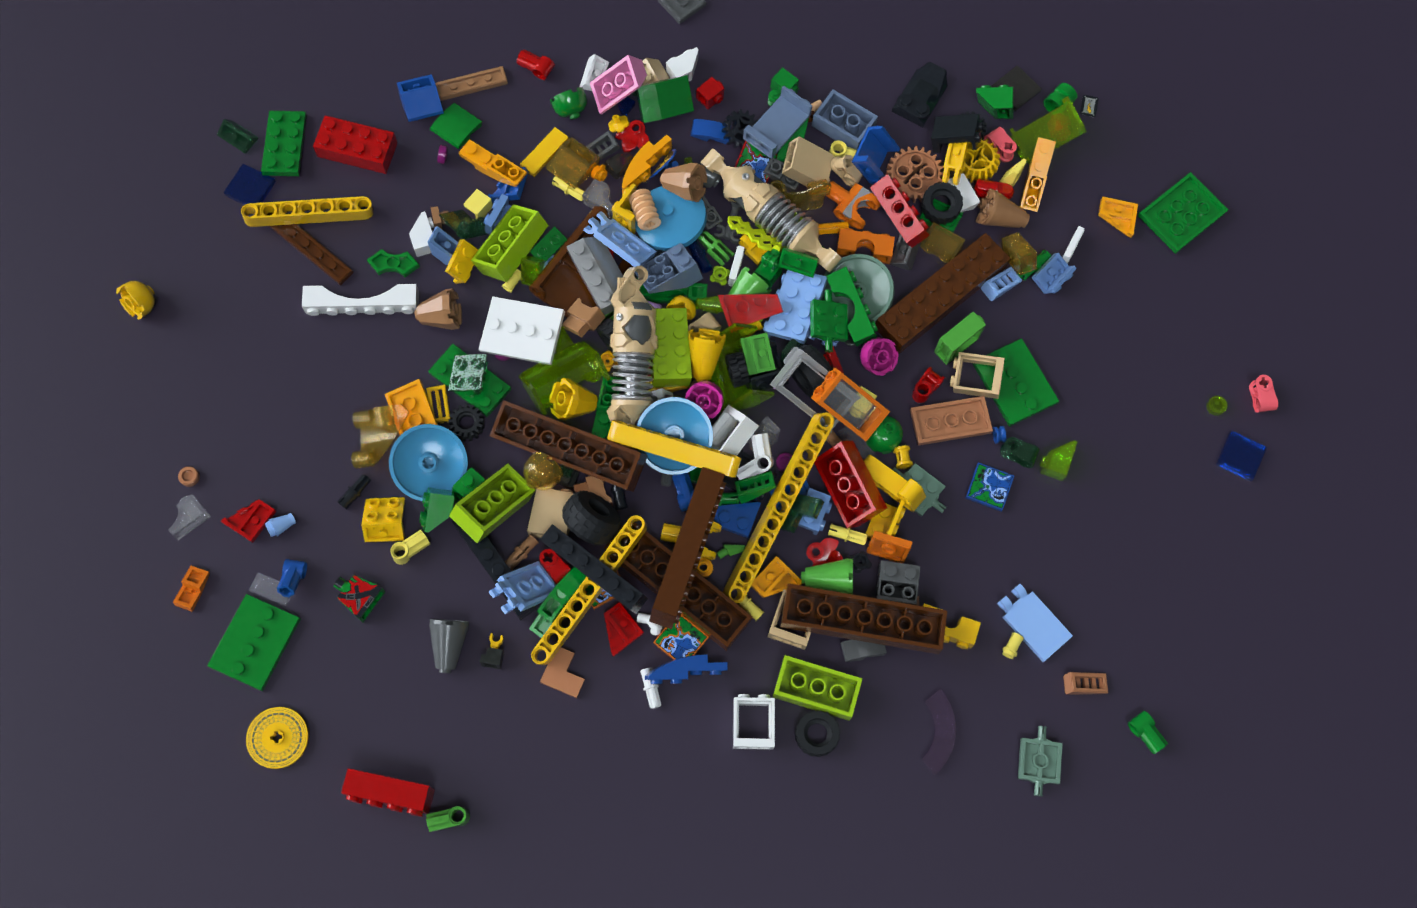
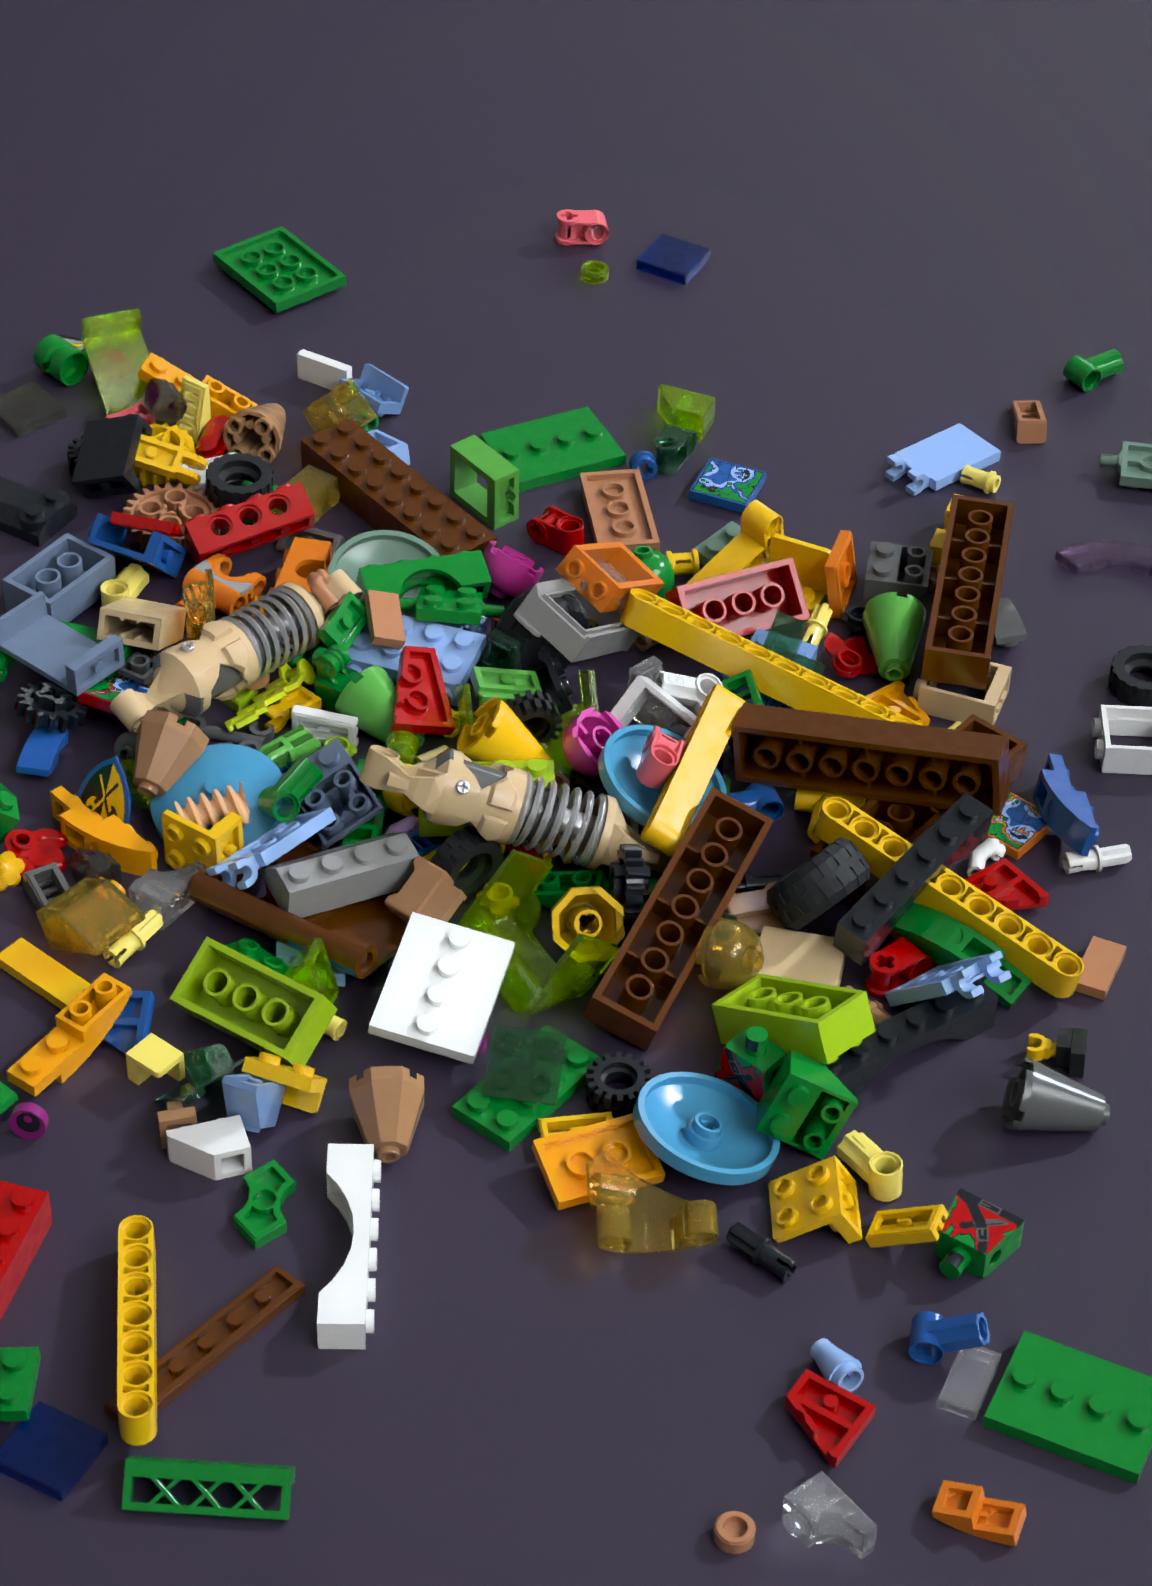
camera: 85 degrees left, 30 degrees down
(226, 251) = (207, 1471): none -> green fence
(357, 571) = (906, 1226): none -> yellow tile
(499, 208) = (185, 1026): medium blue bracket -> none
(586, 416) = (629, 880): none -> black gear
(656, 243) = (292, 789): none -> green piece
(679, 429) = (658, 758): none -> coral piece
(806, 283) = (384, 619): none -> nougat tile
(815, 242) = (318, 583): none -> nougat arm
(817, 687) = (1075, 665): lime brick -> none
(846, 169) = (157, 585): tan piece -> none
(885, 155) = (147, 524): none -> red tile
(997, 100) = (59, 412): green slope -> none
(998, 362) = (568, 453): tan window -> none
(1009, 154) = (164, 401): none -> clear smoke rock
(1119, 214) = (275, 325): light orange wing -> none

